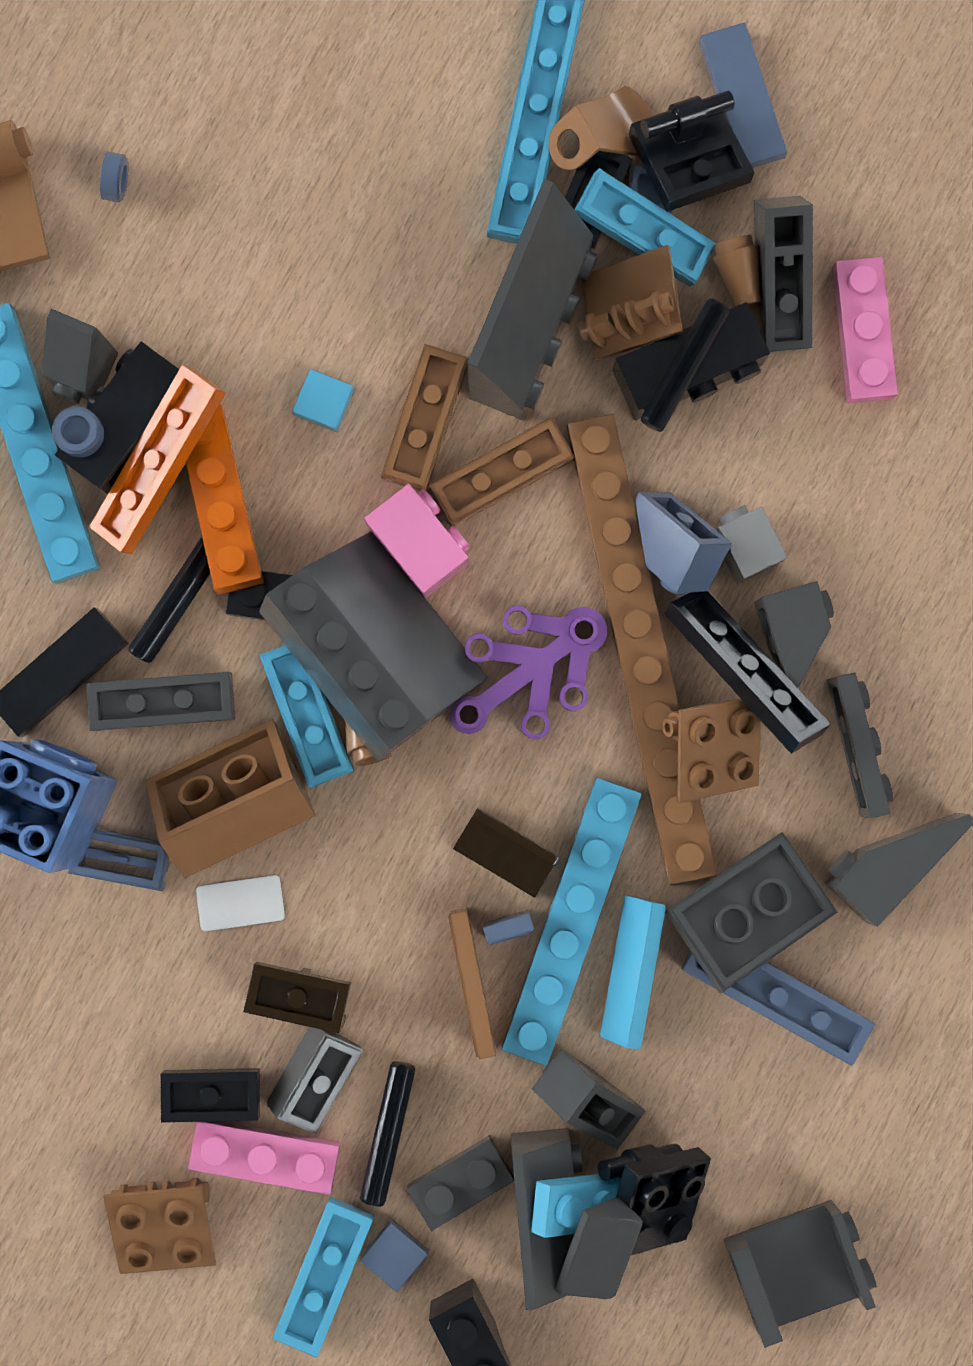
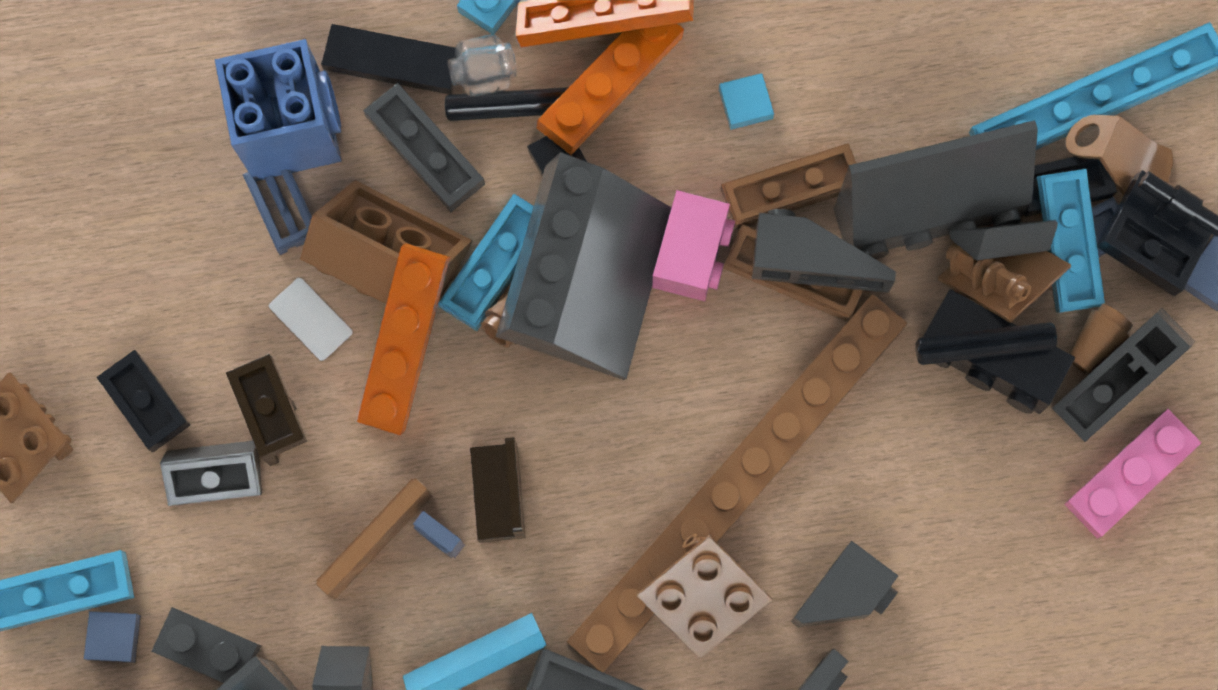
camera: 55 degrees right, 10 degrees down
(126, 599) = (482, 65): none -> clear head
(264, 1156) = (123, 478): bright pink plate -> none
(323, 840) = (403, 339): none -> orange plate
(387, 1133) = (206, 561): black axle -> none
(497, 451) = (805, 253): none -> dark grey slope
(535, 666) = (662, 406): medium lavender plant -> none
(571, 921) = (480, 584): medium azure plate -> none
(607, 280) = (1006, 239): none -> dark grey slope
(678, 543) = (843, 446): sand blue slope -> none
(747, 669) = (784, 572): black plate -> none
(753, 543) = (887, 502): light grey brick -> none

